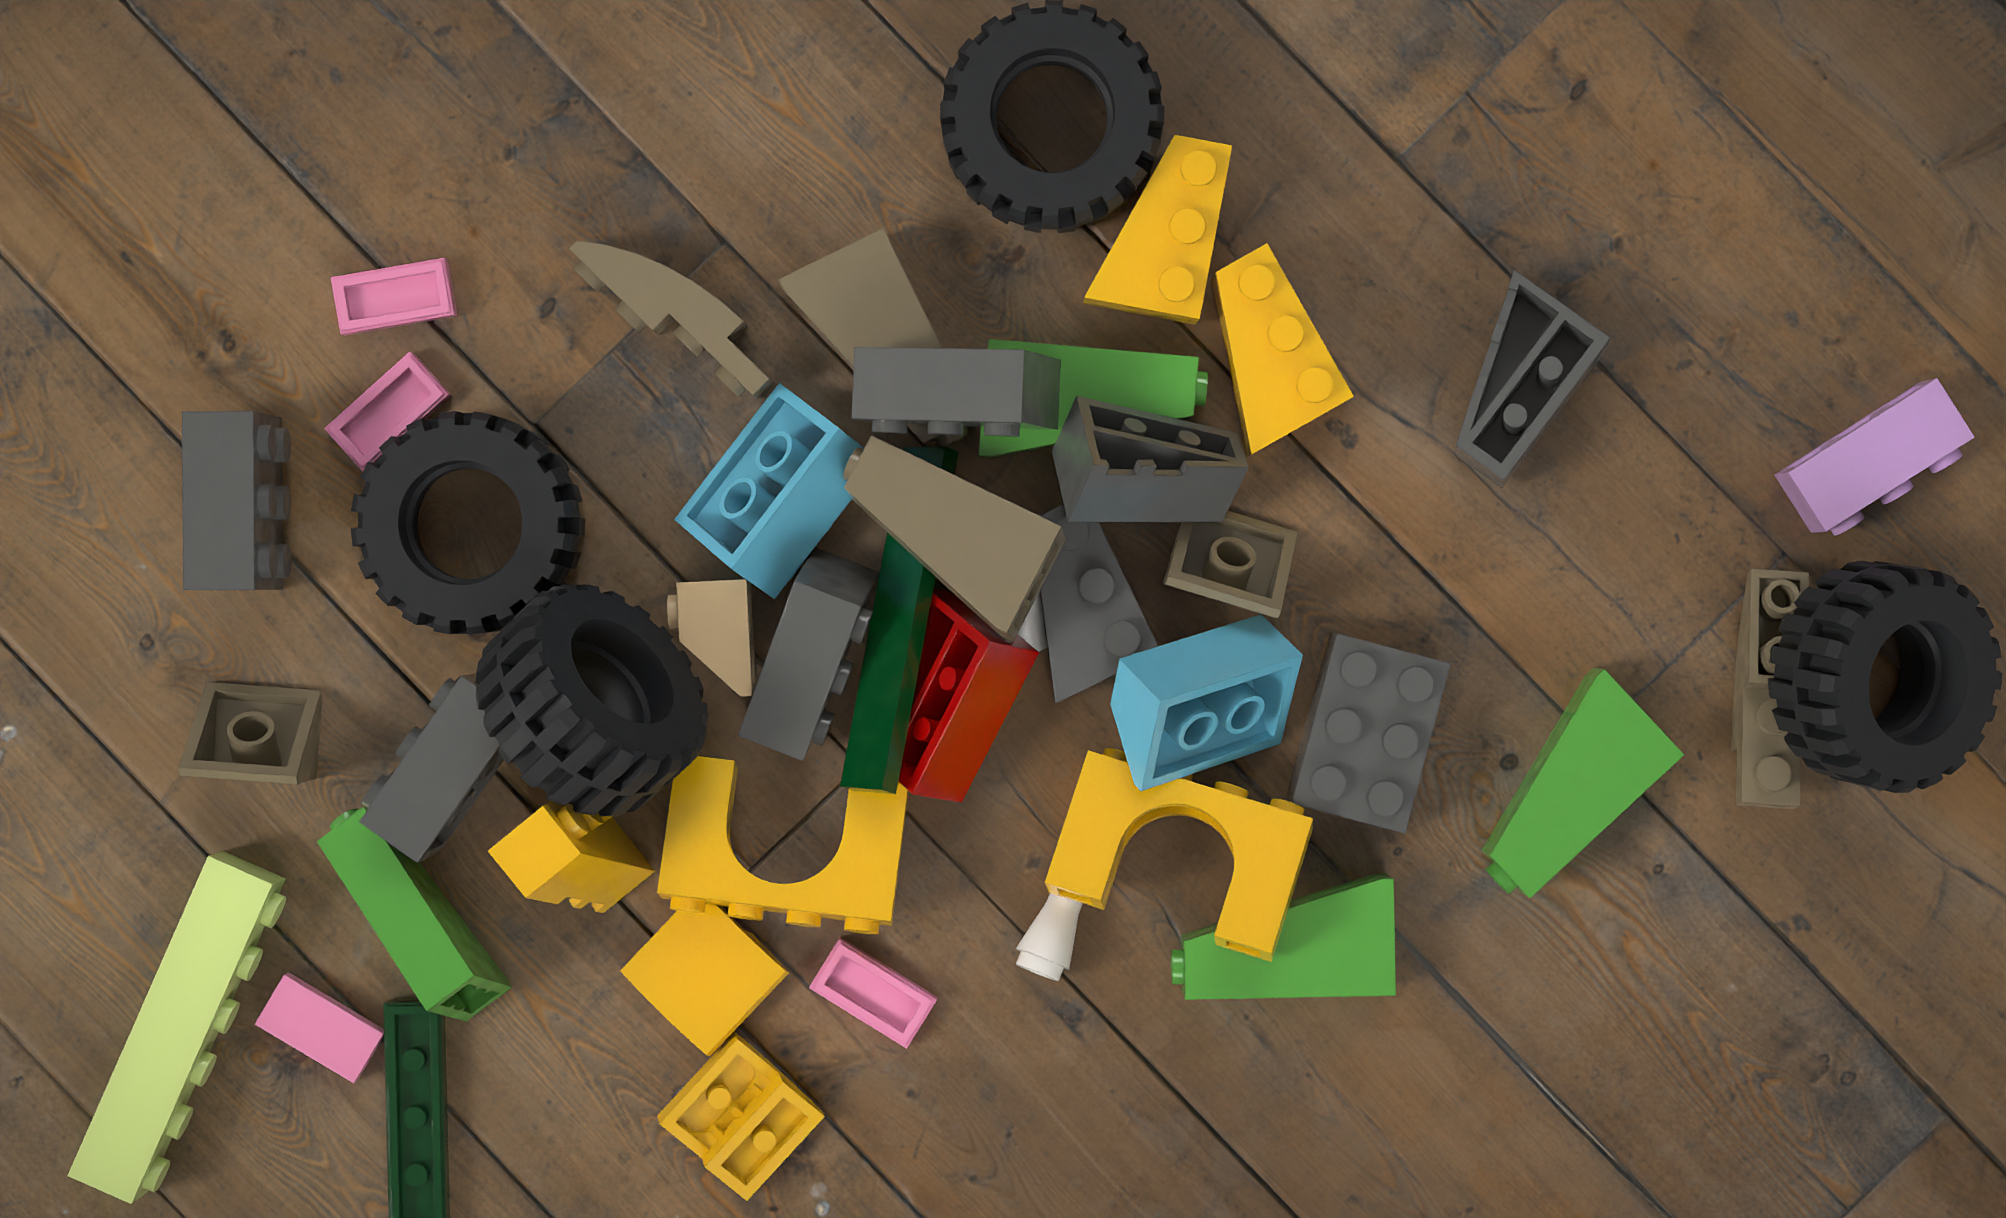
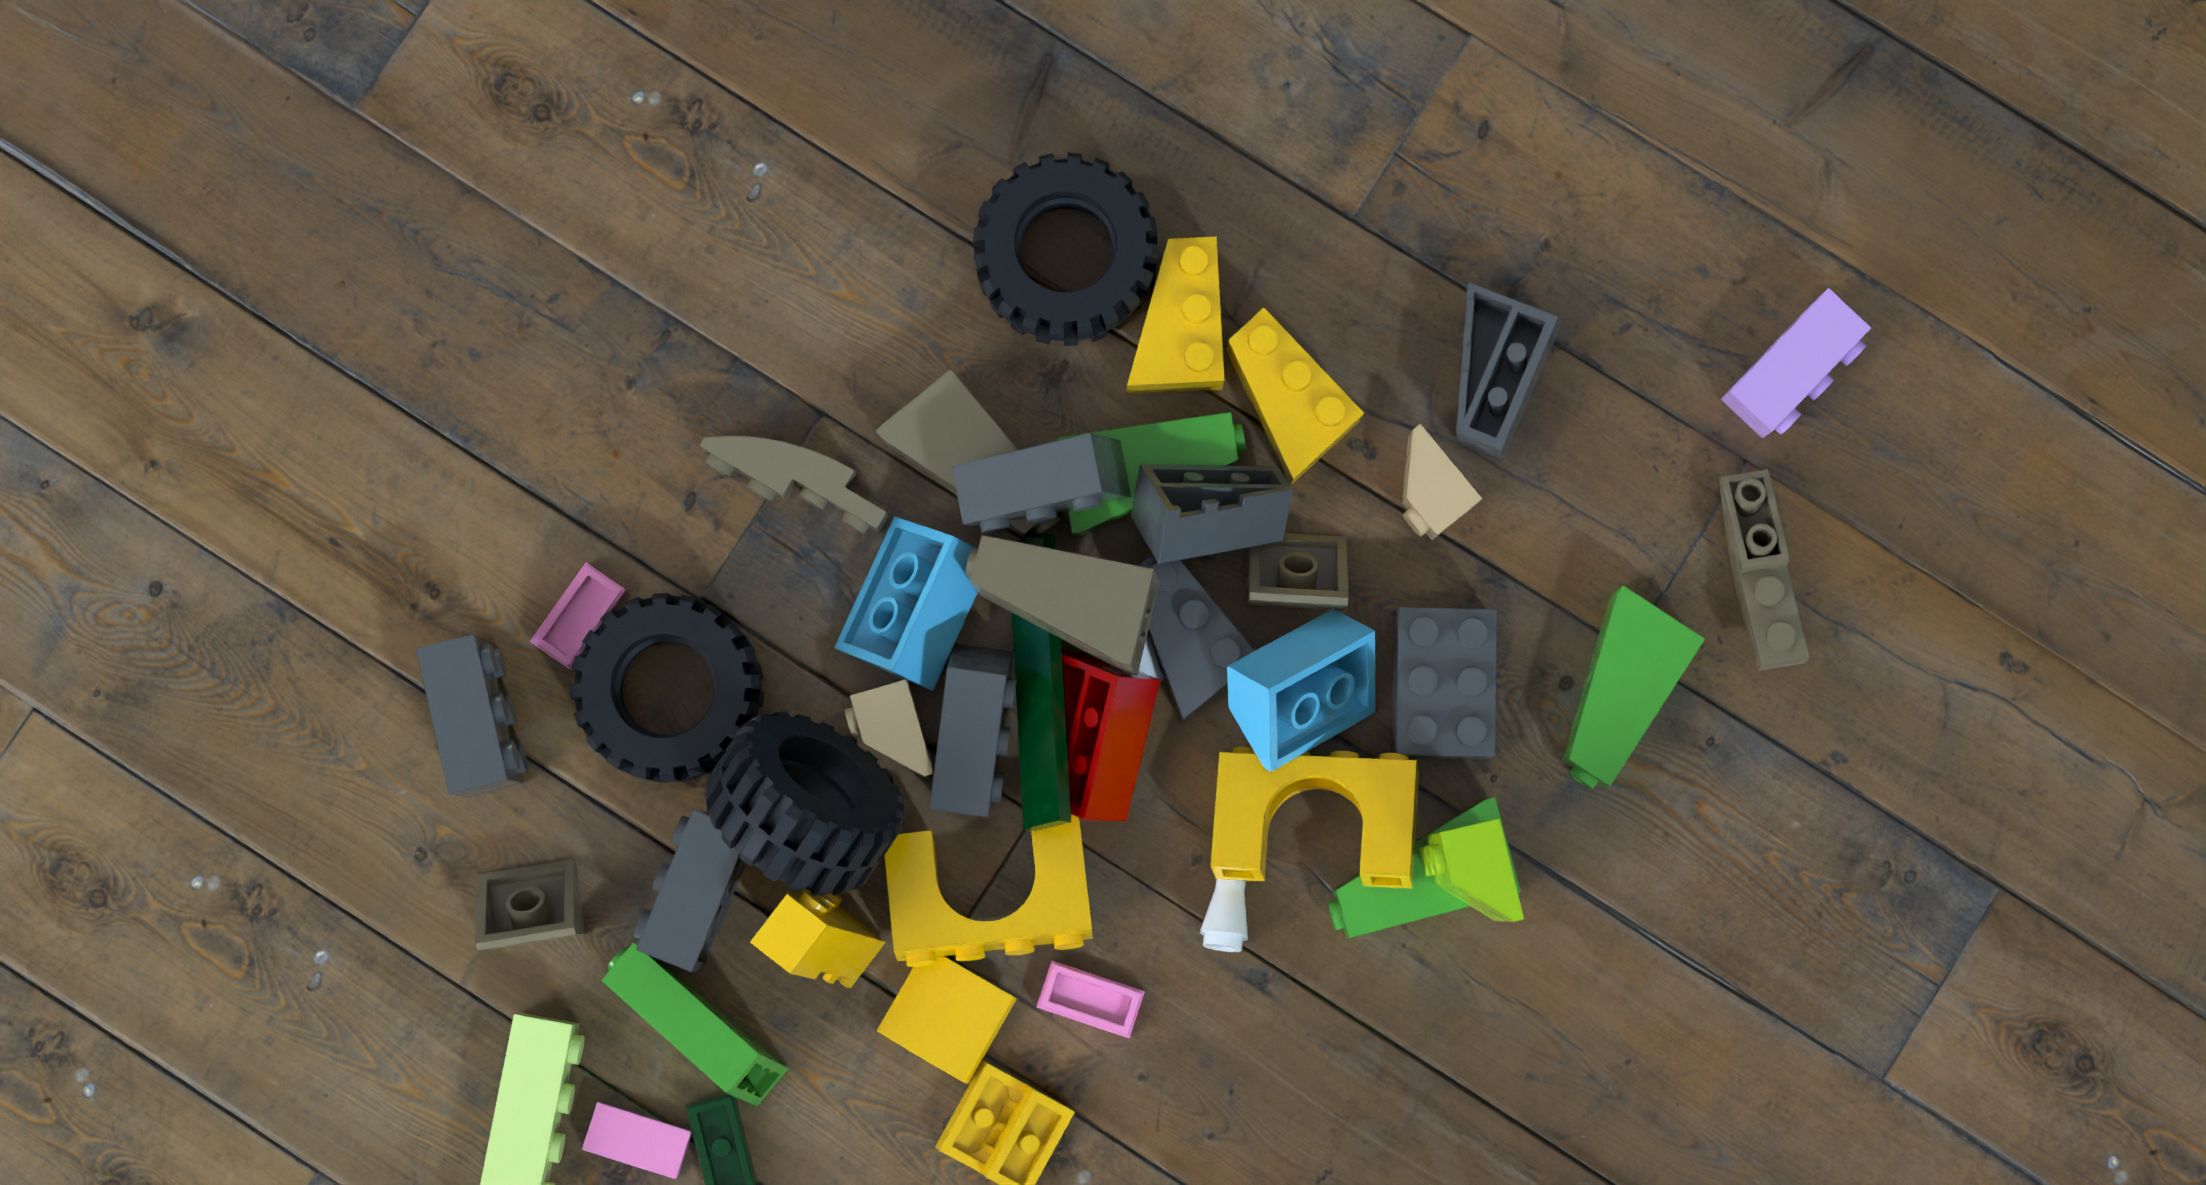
camera: 15 degrees left, 5 degrees down
(394, 296) = (562, 521): bright pink tile -> none
(1350, 960) = (1474, 868): none -> lime slope
(1413, 500) = (1433, 487): none -> tan slope
(1941, 687) = (1897, 524): black tyre -> none

